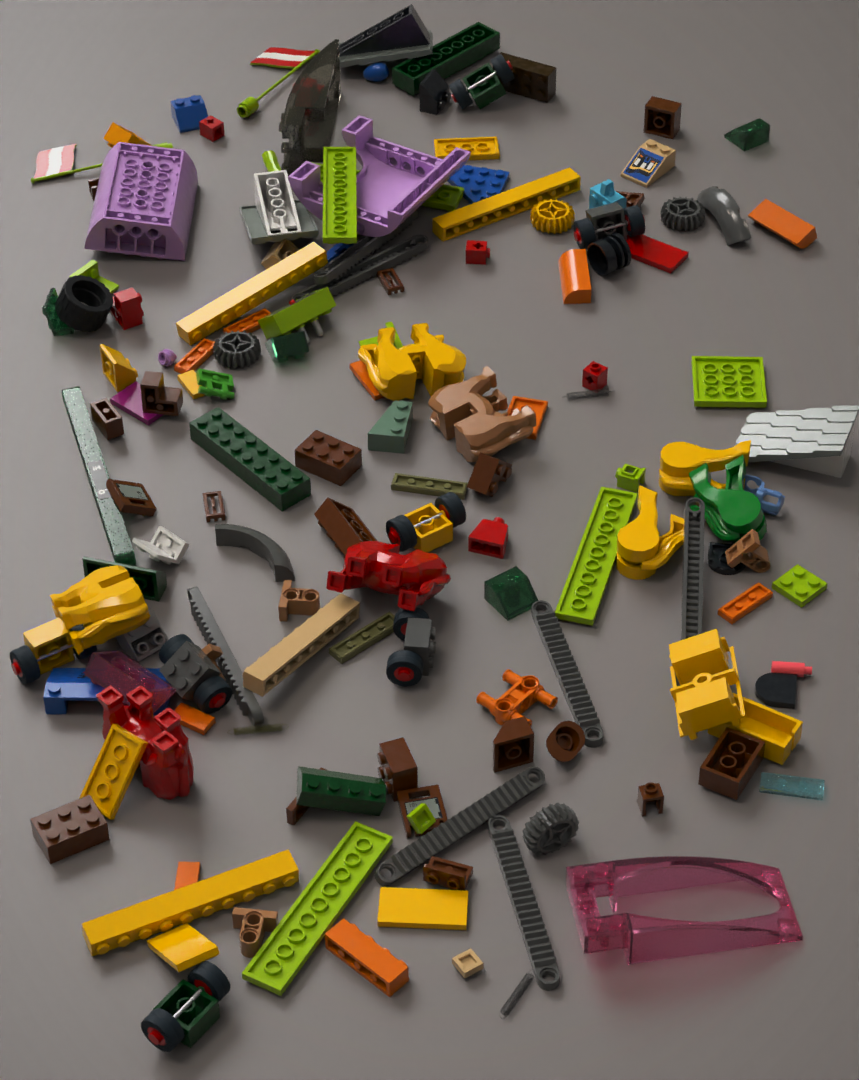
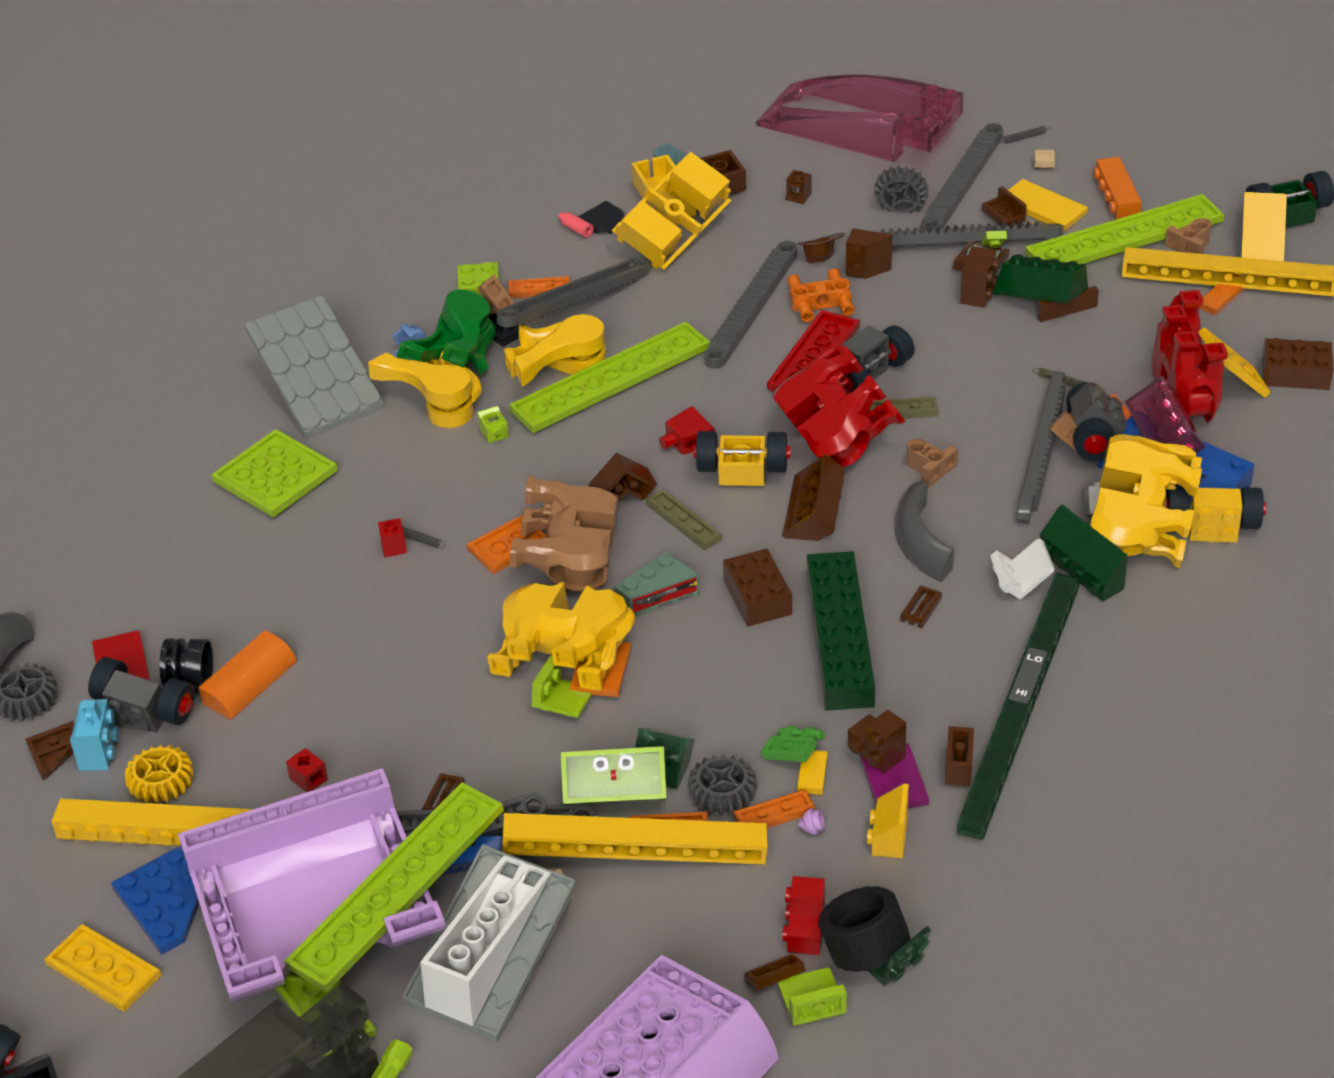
camera: 140 degrees left, 0 degrees up
(127, 492) = (1005, 641): reddish brown container -> none
(131, 278) = (774, 972): none -> reddish brown tile
(300, 644) = (970, 404): tan brick -> none
(468, 648) = (824, 332): none -> red plate
(510, 593) = (727, 380): clear green slope -> none

